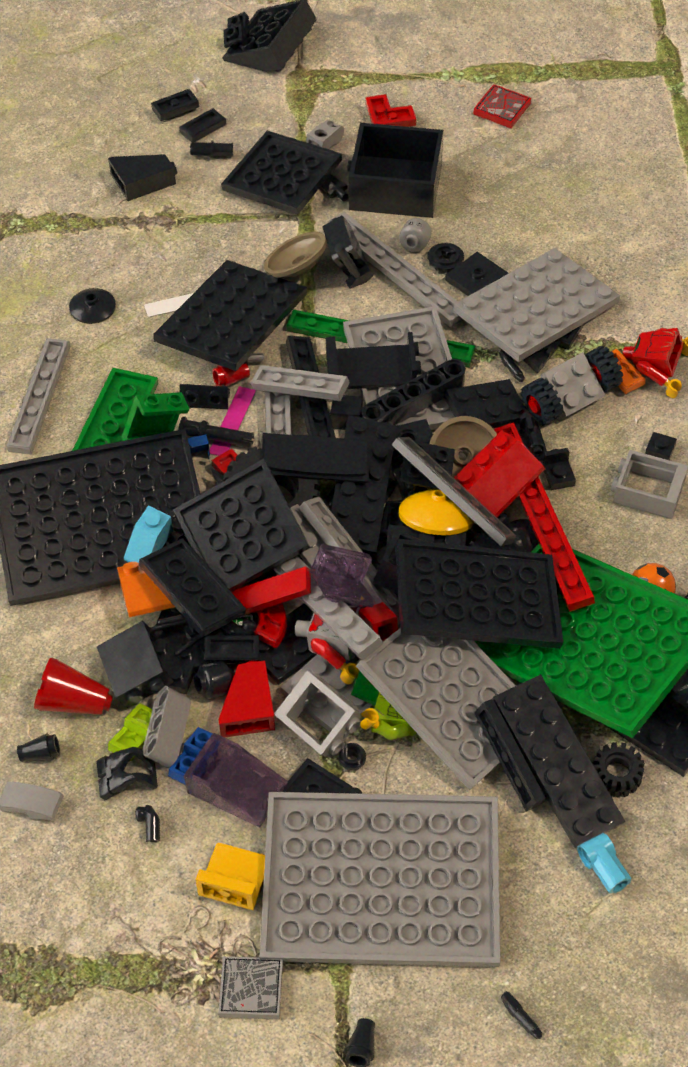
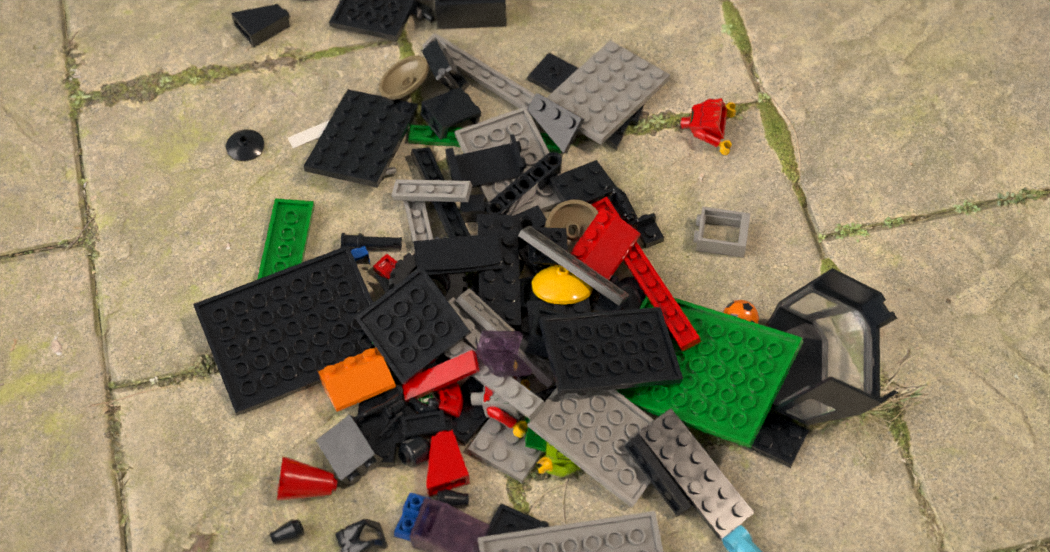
camera: 10 degrees left, 5 degrees up
(38, 396) = (218, 231): light grey tile -> none
(134, 730) = (361, 502): lime slope -> none
(148, 534) = (338, 341): medium azure slope -> none
(154, 414) = (320, 238): green panel -> none
(166, 726) = (385, 497): light grey beam -> none
(192, 587) = (383, 380): black tile -> none
(206, 396) = (354, 211): black hinge -> none
(226, 377) = (368, 193): red cone -> none
(234, 417) = (382, 225): dark pink sticker -> none
(252, 743) = (453, 498): none -> black cone
(300, 697) = (486, 455): light grey window -> none
(341, 297) = (449, 110): none -> black panel
(352, 749) = (535, 490): black plate -> none
(380, 620) = (537, 383): red brick -> none
(415, 232) = (496, 43): light grey head -> none
(446, 250) = (524, 54): black gear -> none
(468, 327) = (556, 121): none -> wing
(509, 362) = (595, 147): black piece -> none
(572, 385) = (647, 158): plate -> none
(622, 756) = (742, 460): black tyre -> none
(631, 377) = (682, 139): orange plate -> none
(661, 446) = (724, 198): black plate -> none

